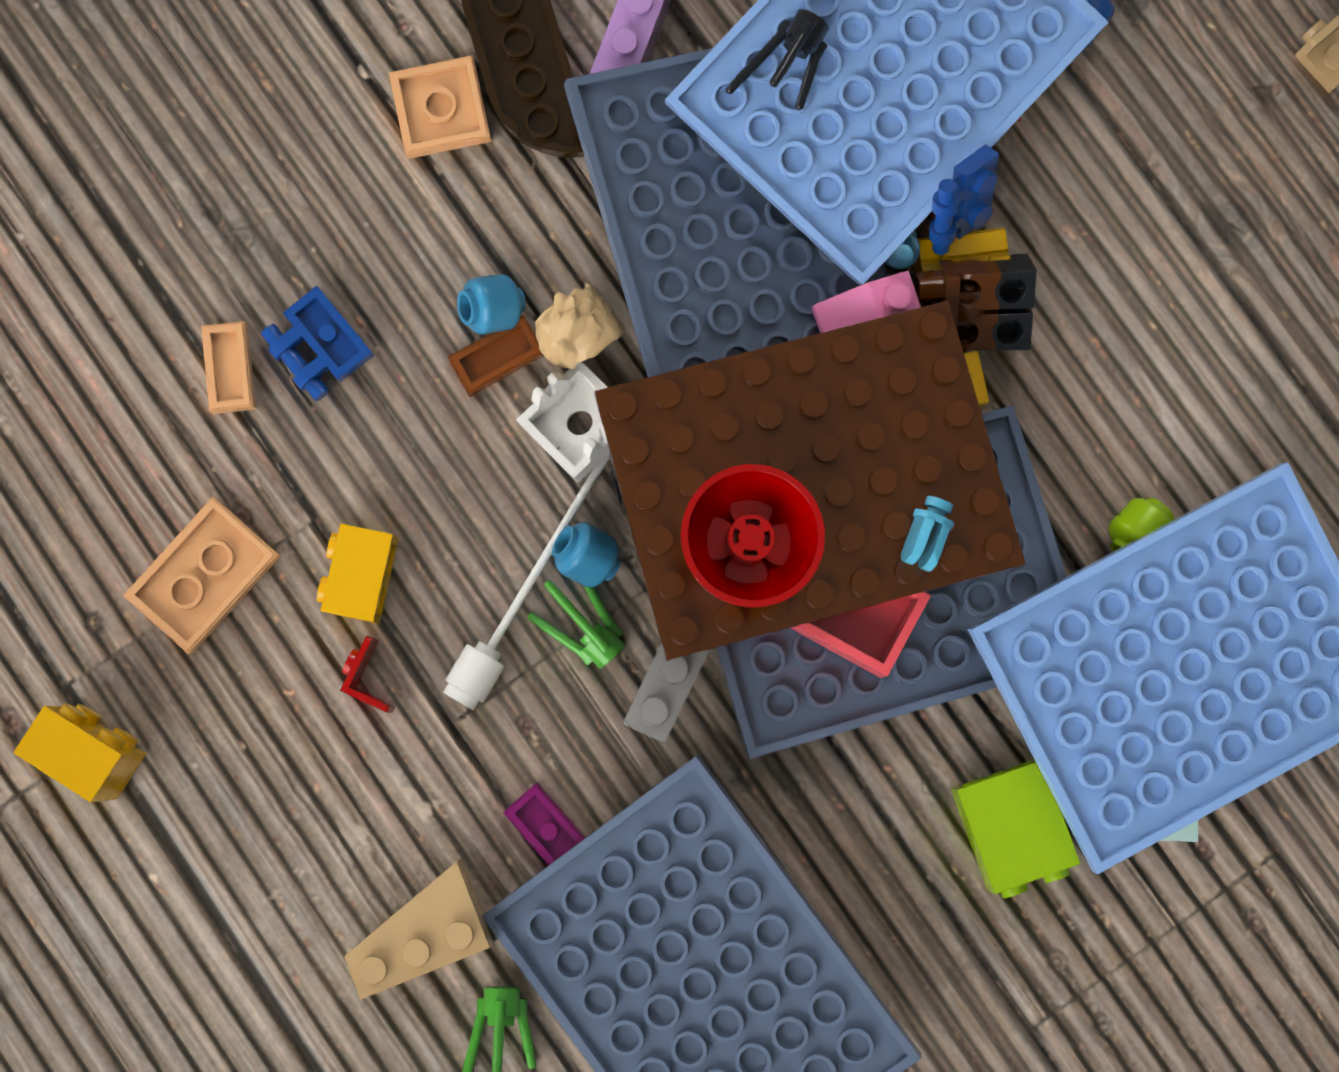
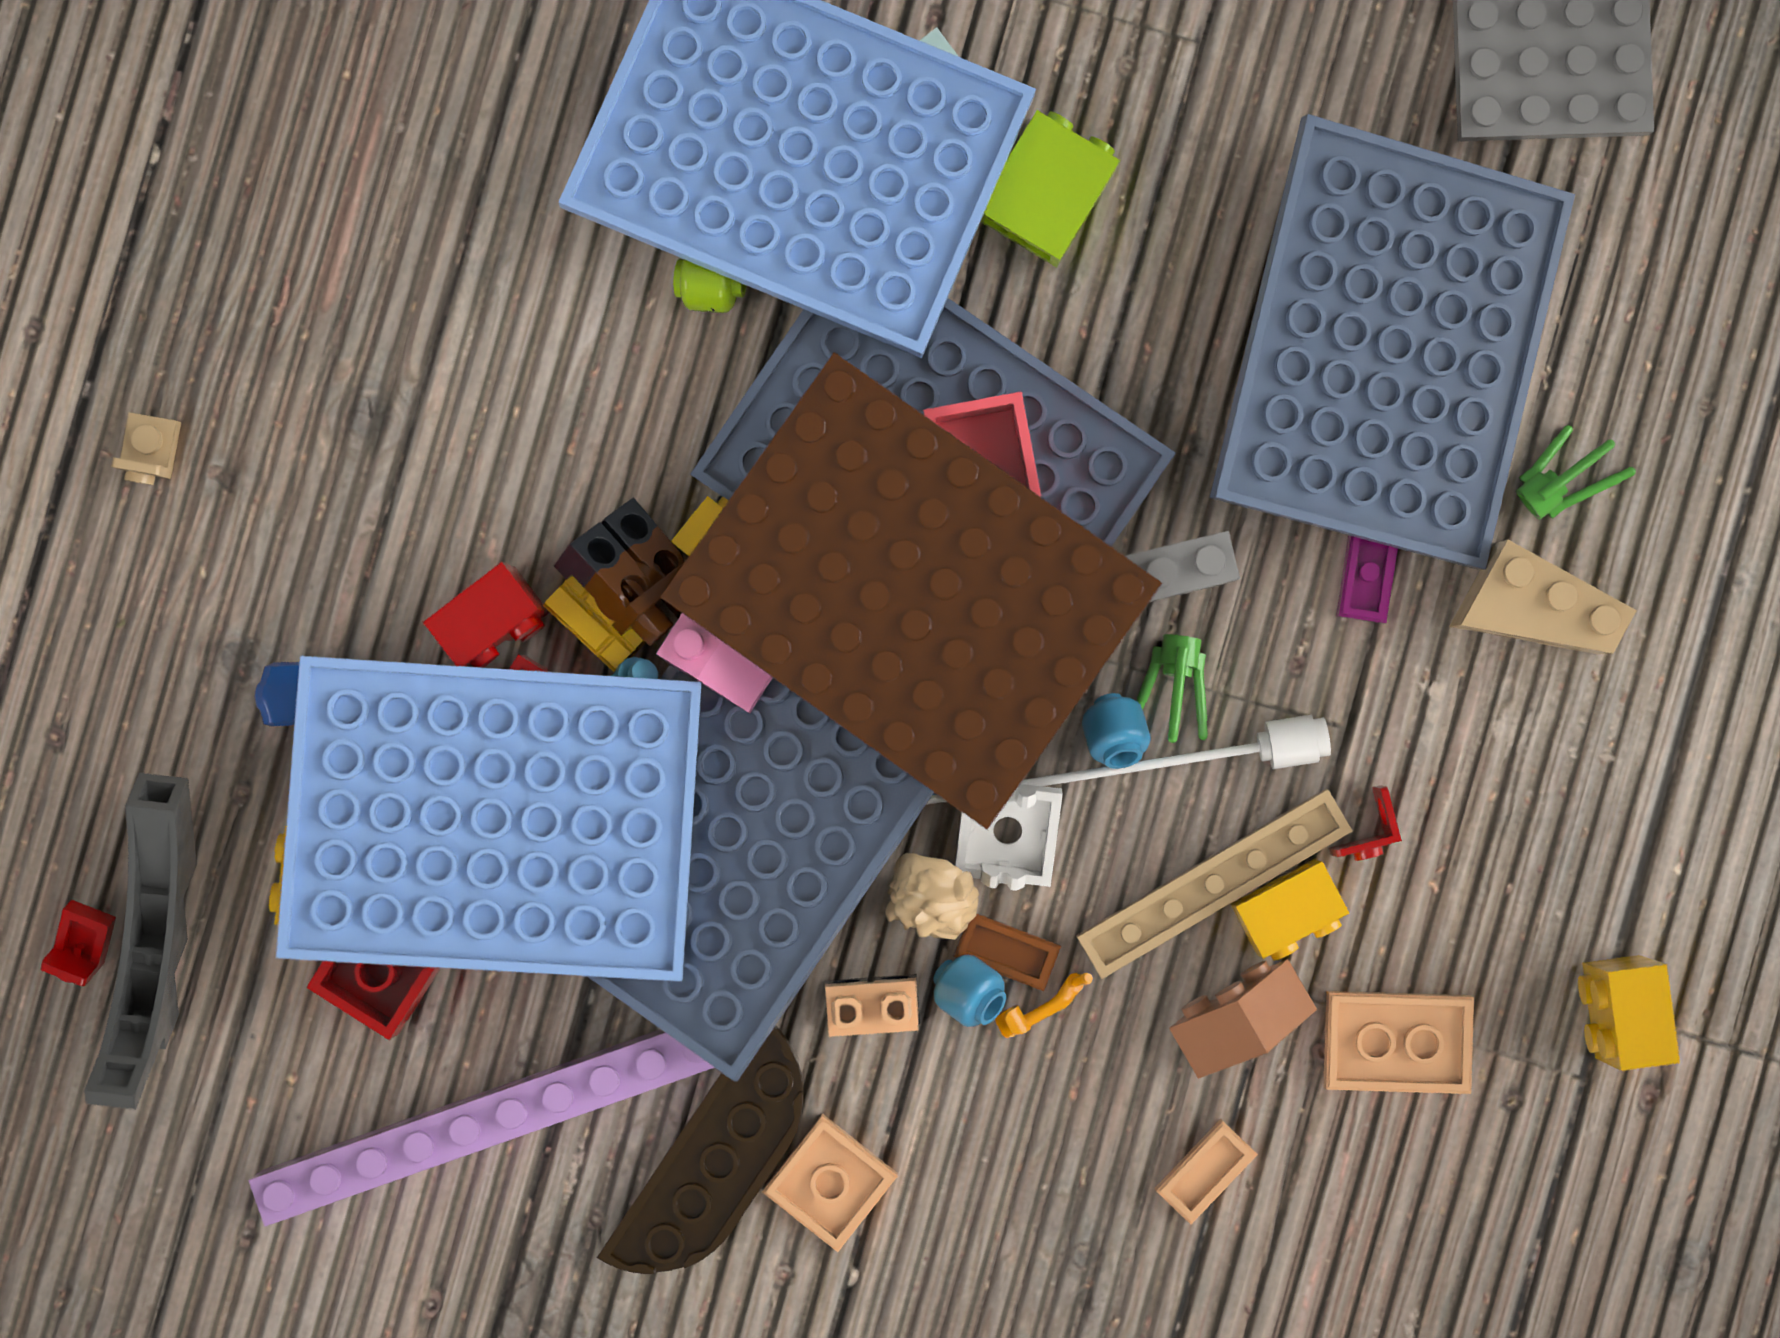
camera: 130 degrees left, 5 degrees up
(308, 475) = (1243, 1018): none -> nougat brick
(329, 337) = (1110, 1107): blue plate -> none
(421, 537) = (1214, 883): none -> tan plate
(442, 319) = (1014, 1022): none -> light orange piece
(536, 224) = (872, 1007): none -> light nougat hips
(772, 518) = (979, 568): red piece -> none
(802, 37) = (533, 905): black plant -> none
(928, 534) = (883, 451): medium azure arm -> none
(965, 200) = (556, 654): blue plate -> none
(1031, 181) = (485, 615): none -> red brick

